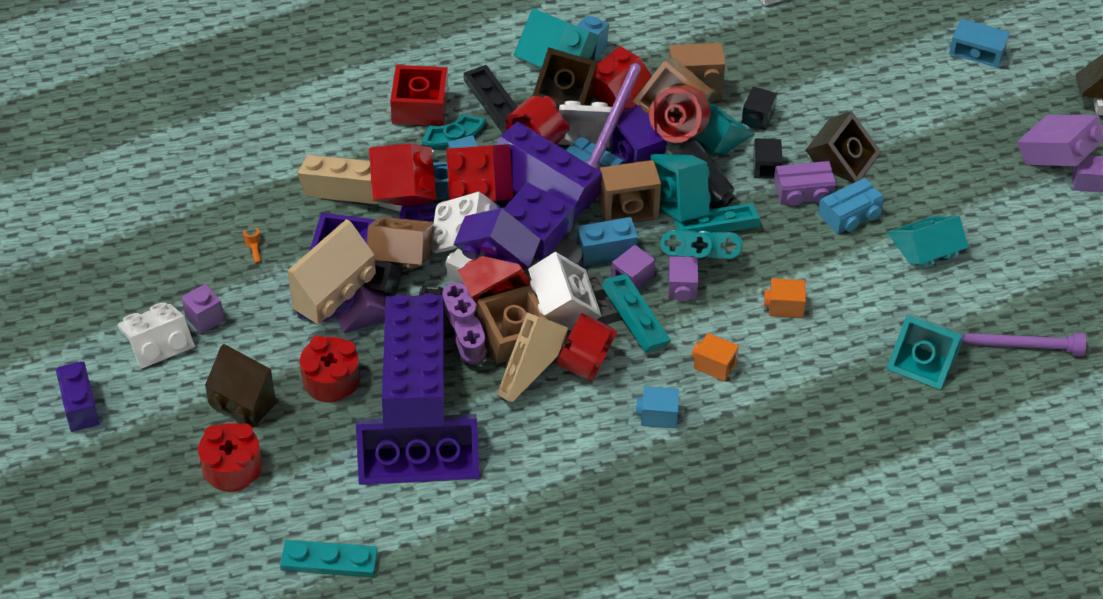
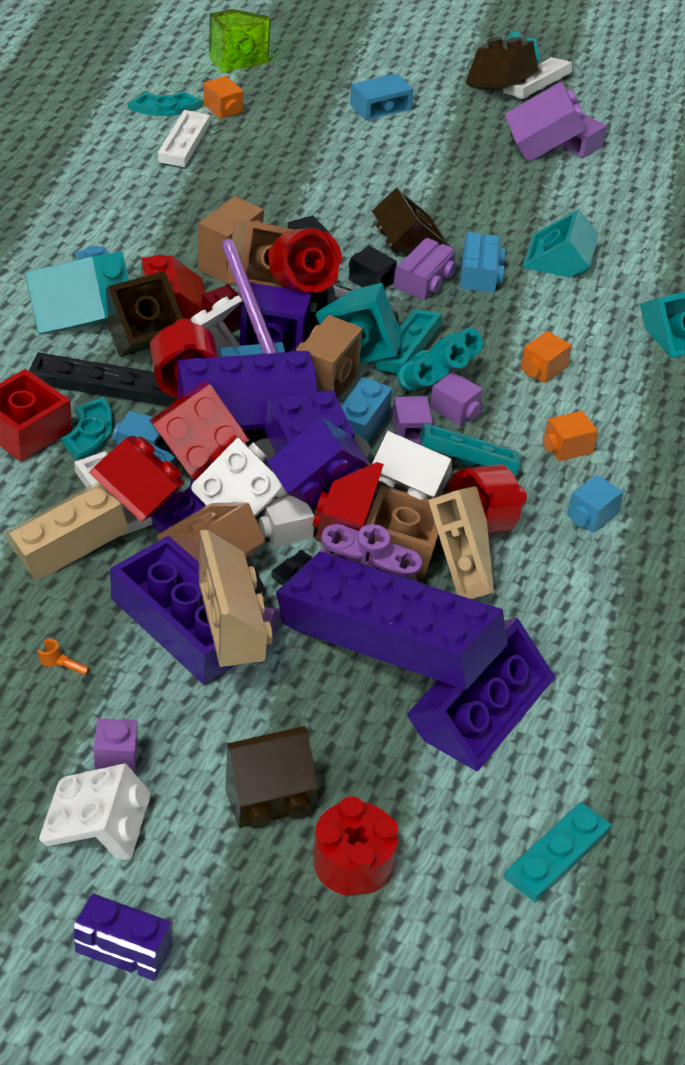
camera: 55 degrees left, 5 degrees down
(329, 368) = (315, 694): red brick -> none

